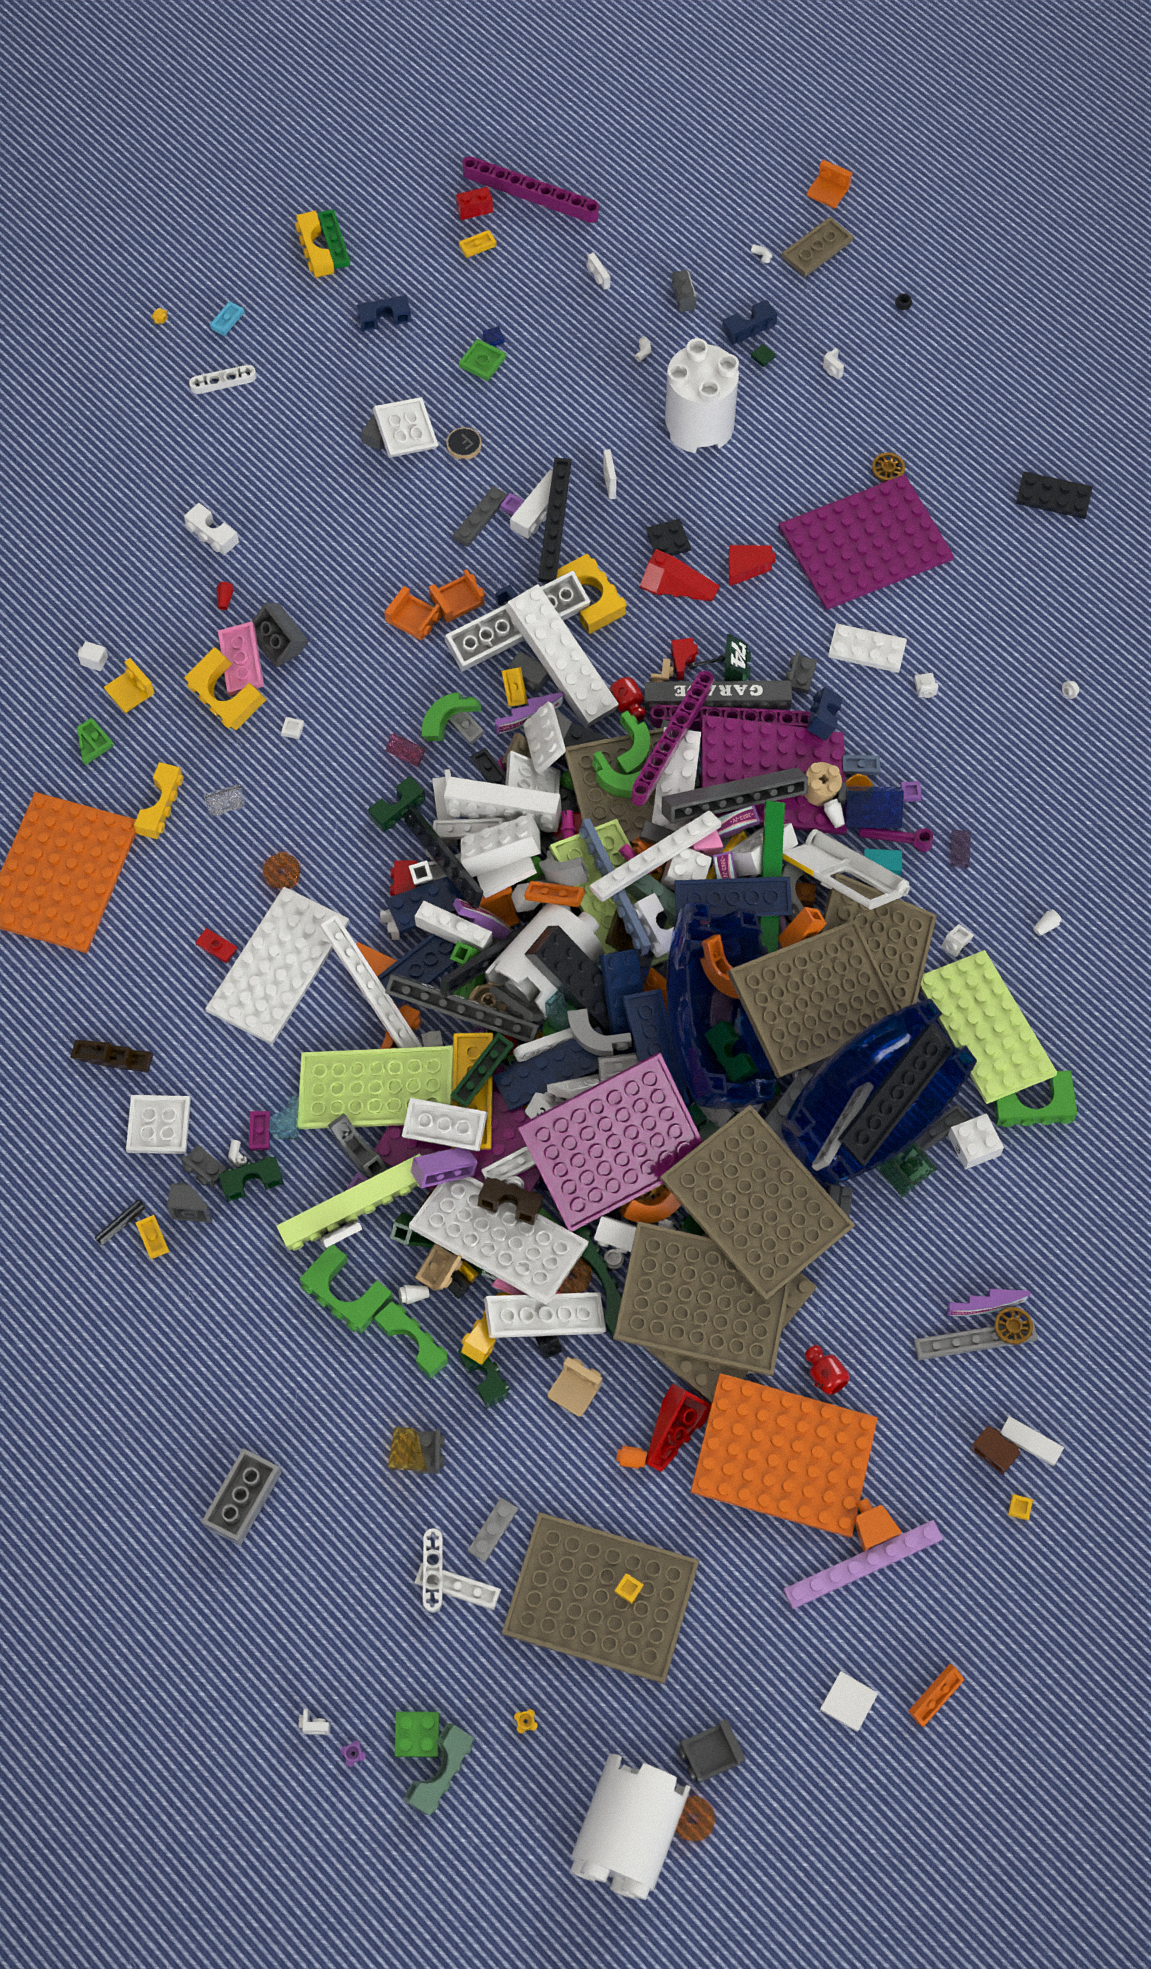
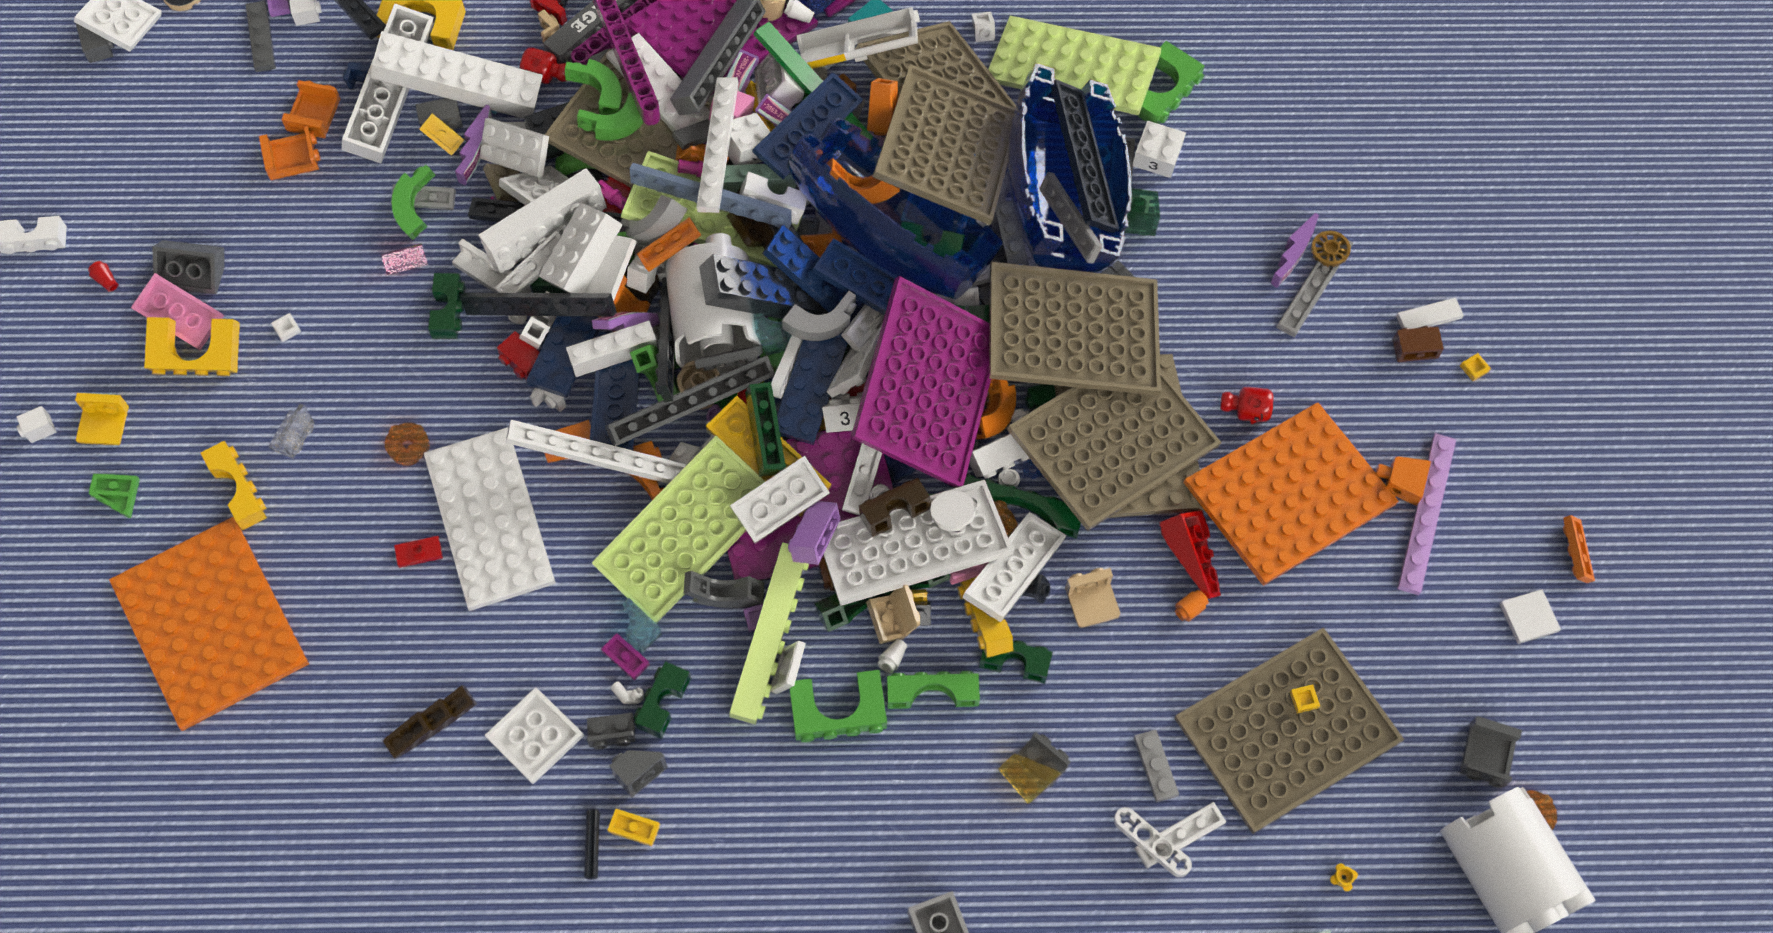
camera: 50 degrees left, 0 degrees up
(542, 1239) = (952, 510): none -> white tile

